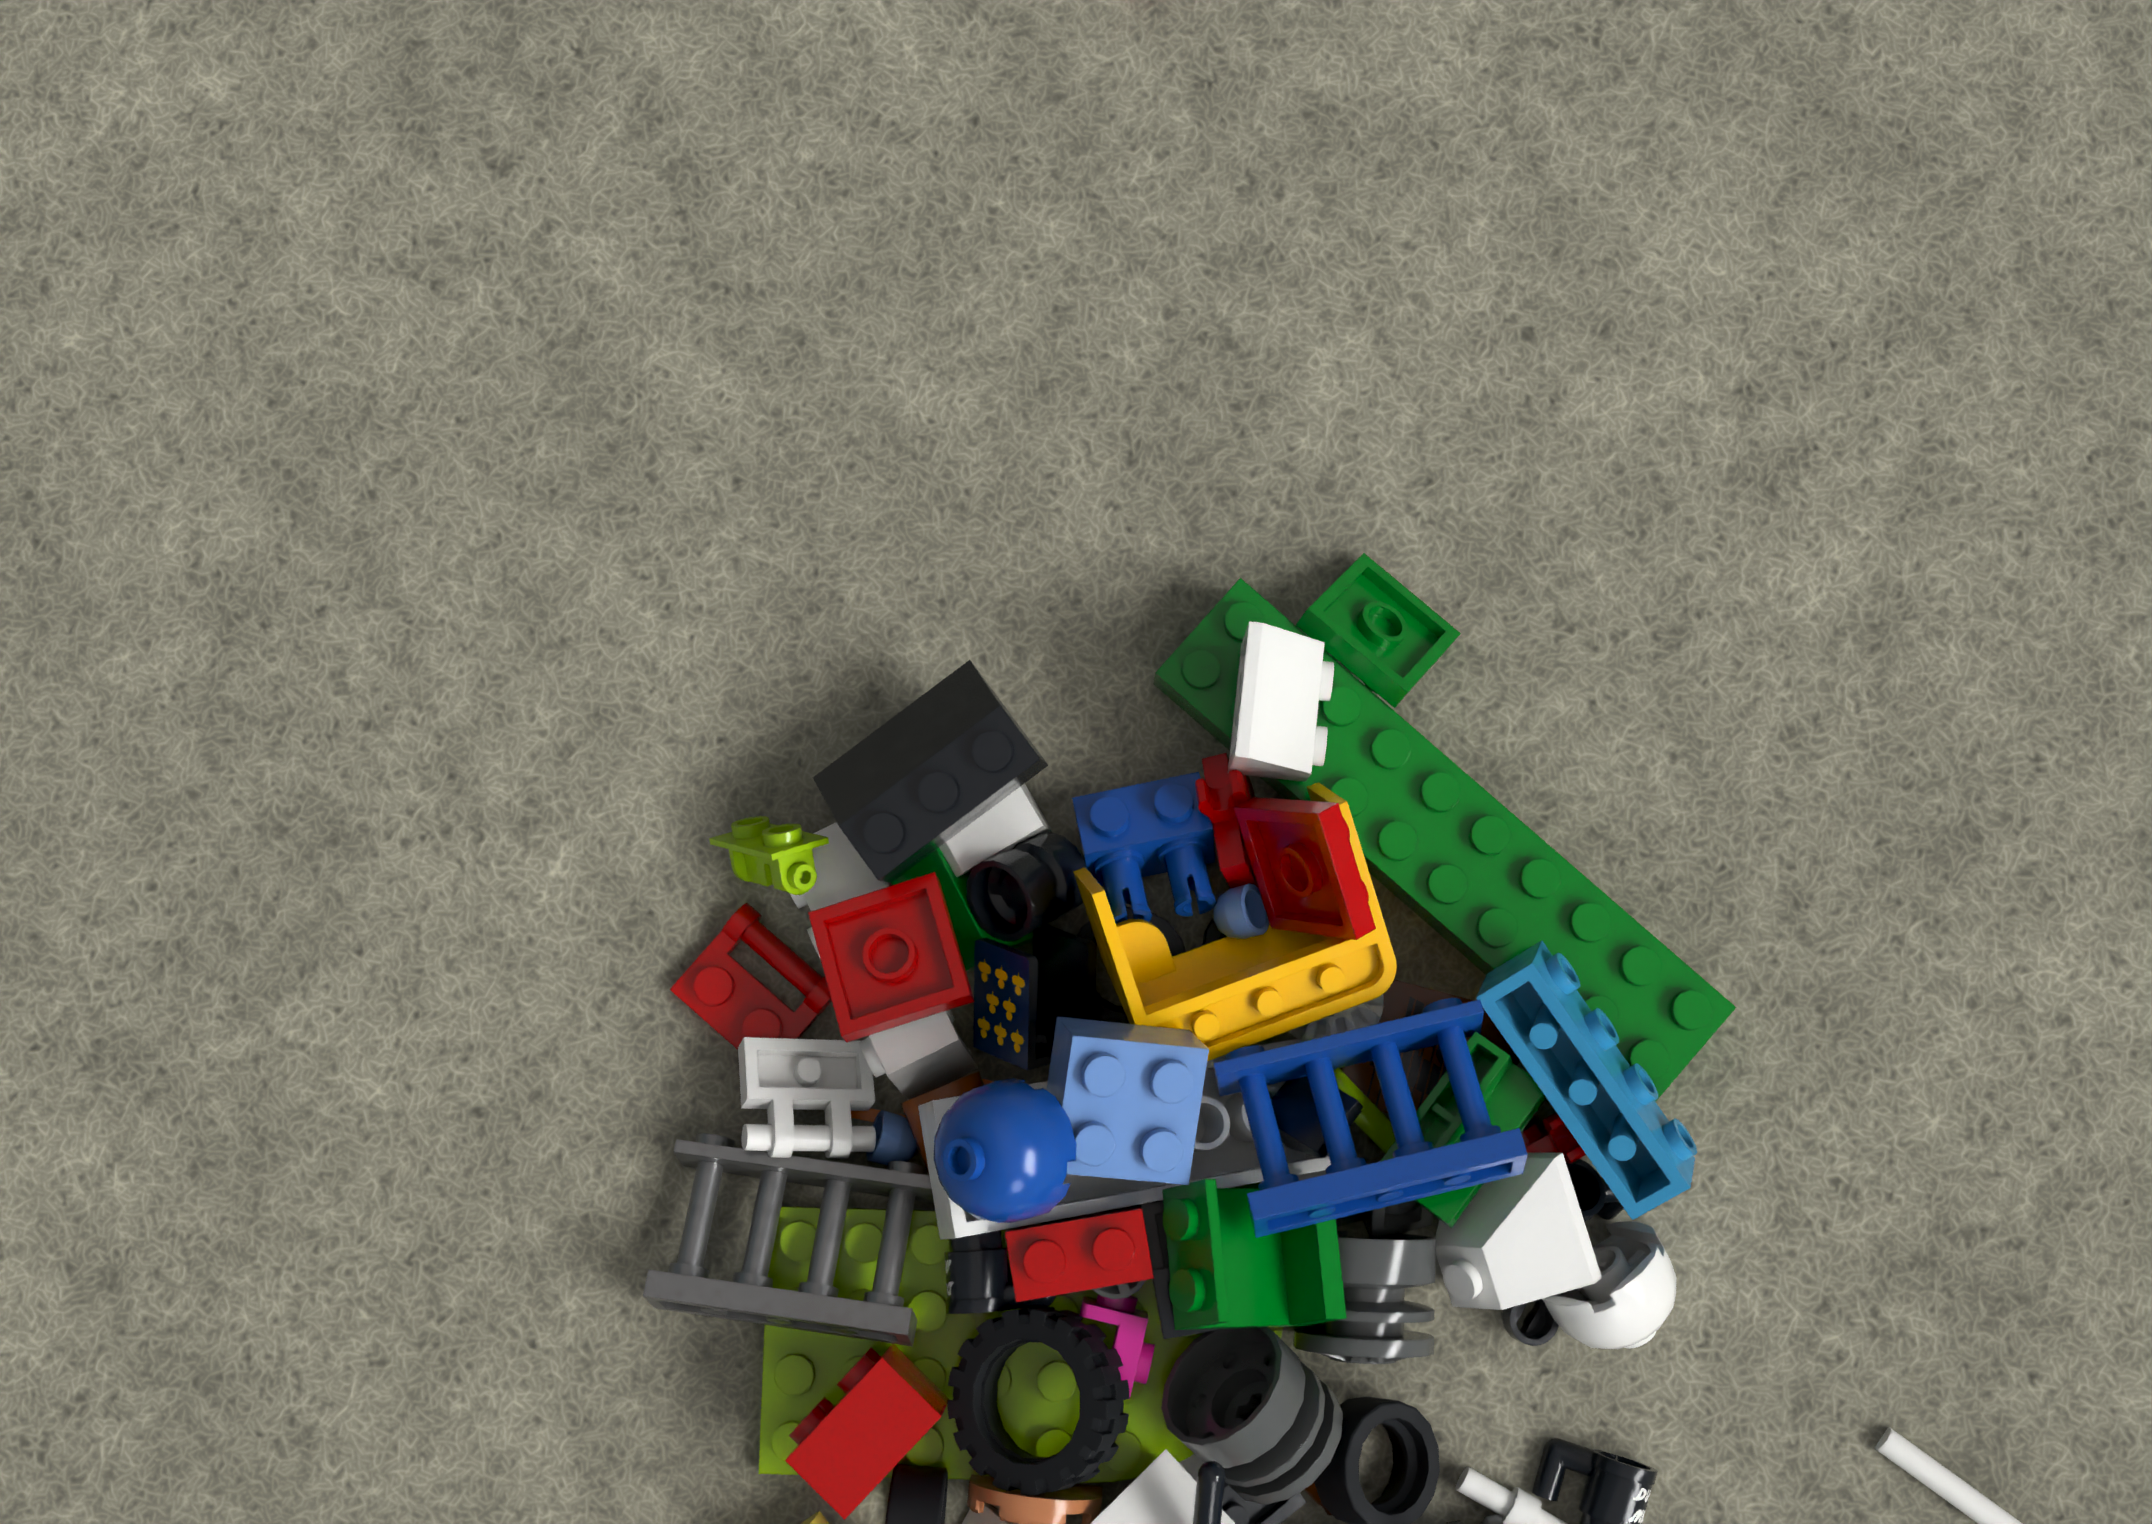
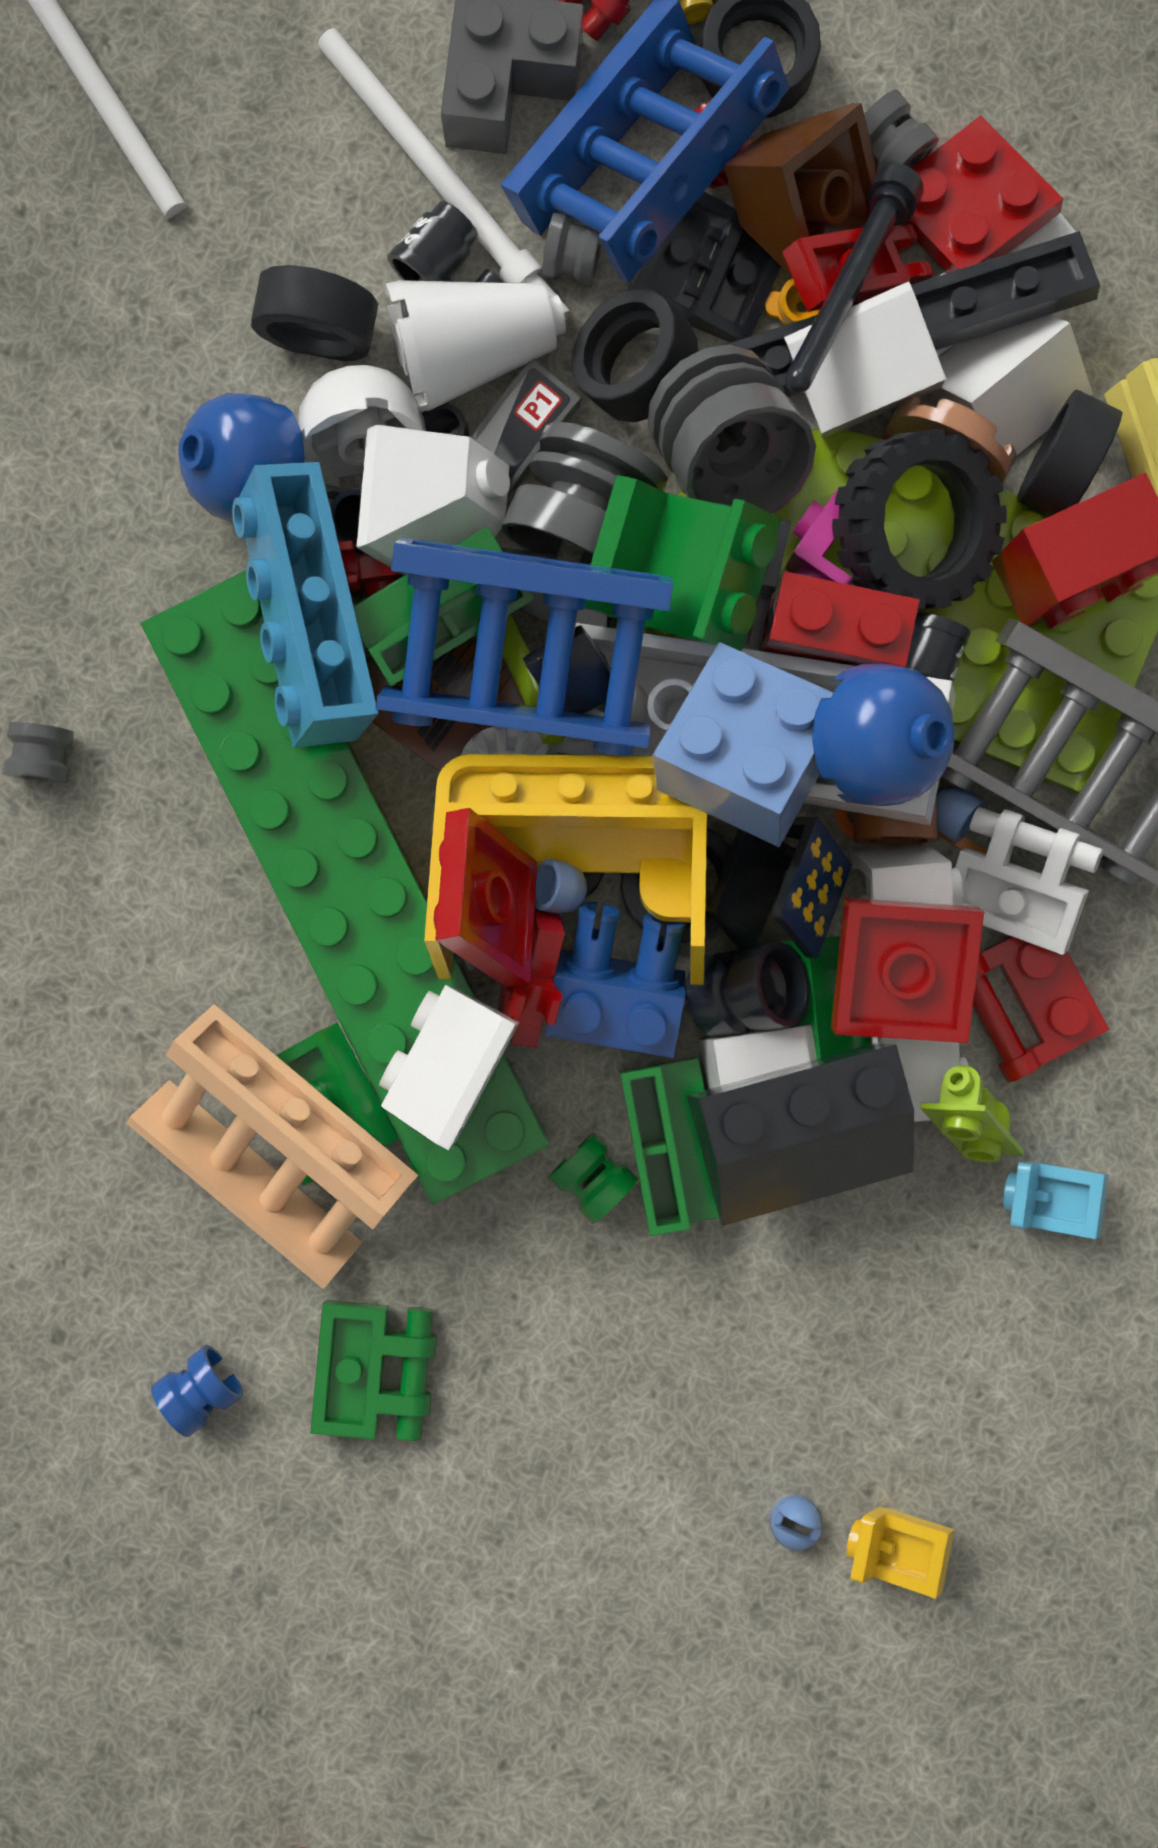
camera: 165 degrees left, 5 degrees up
(663, 811) = (1056, 1199): none -> medium azure bracket
(691, 440) = (900, 1551): none -> yellow bracket
(793, 438) = (801, 1513): none -> medium blue hinge
(1050, 719) = (666, 1144): none -> green piece
(1088, 655) = (603, 1189): none -> green wheel
(1251, 408) = (351, 1371): none -> green plate
(1383, 333) = (193, 1393): none -> blue wheel
(1399, 602) = (294, 1120): none -> light nougat fence
(1462, 1357) = (520, 416): none -> slope
(1545, 1419) = (468, 333): none -> white cone
(1702, 1380) = (314, 312): none -> black tyre
(1721, 1218) = (228, 440): none -> blue cylinder
(1779, 852) = (38, 752): none -> dark grey wheel

